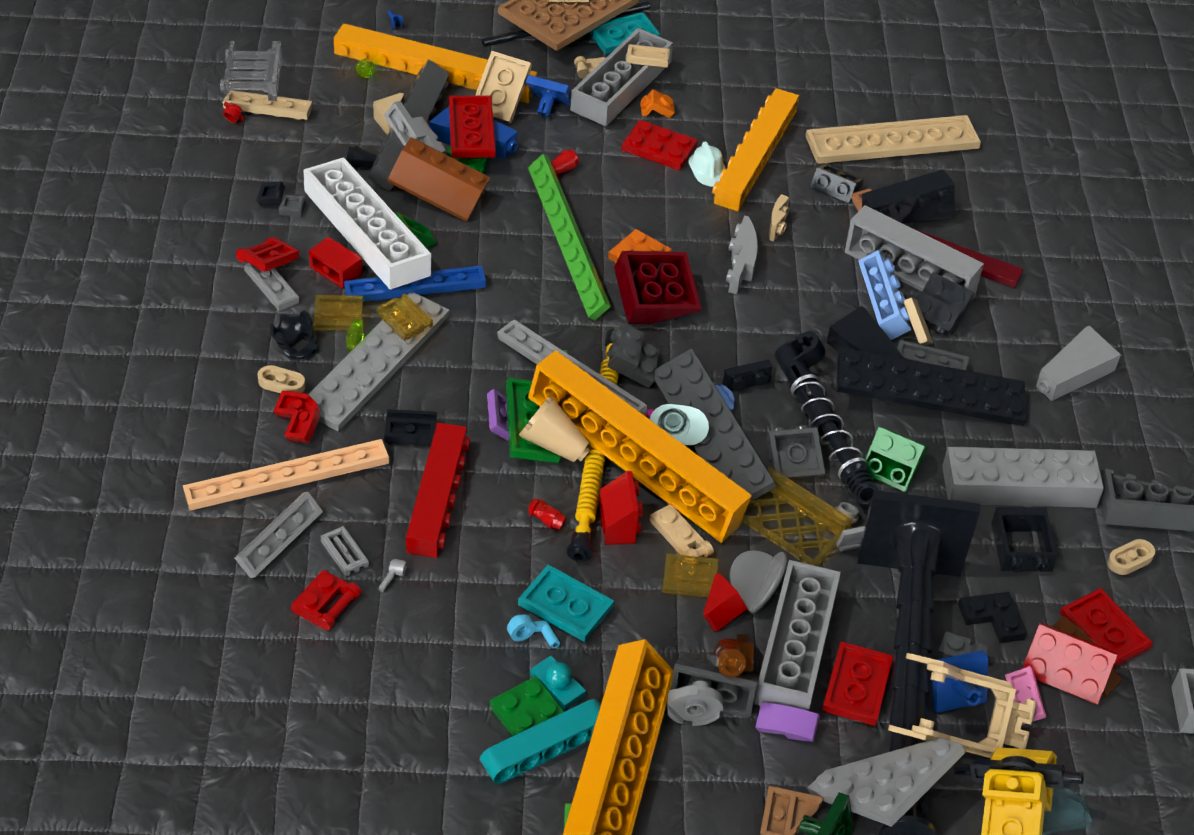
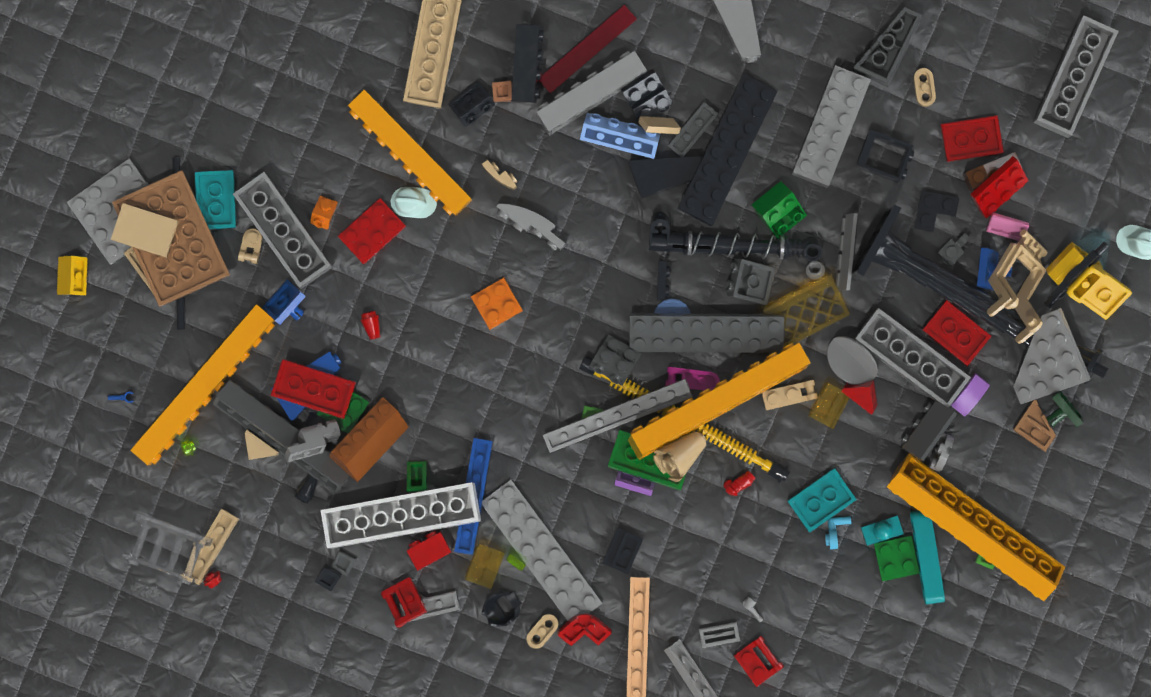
camera: 65 degrees left, 40 degrees up
(404, 317) = (517, 520): clear yellow plate -> none
(436, 490) = (691, 553): red brick -> none
(504, 81) = (267, 343): tan plate -> none
(569, 238) = (460, 355): bright green plate -> none
(620, 510) = (761, 434): red slope -> none
(648, 55) = (278, 203): tan tile -> none
(656, 286) = (551, 311): dark red slope -> none
(681, 422) = (700, 359): light aqua piece -> none
(733, 655) = (922, 415): plate -> none

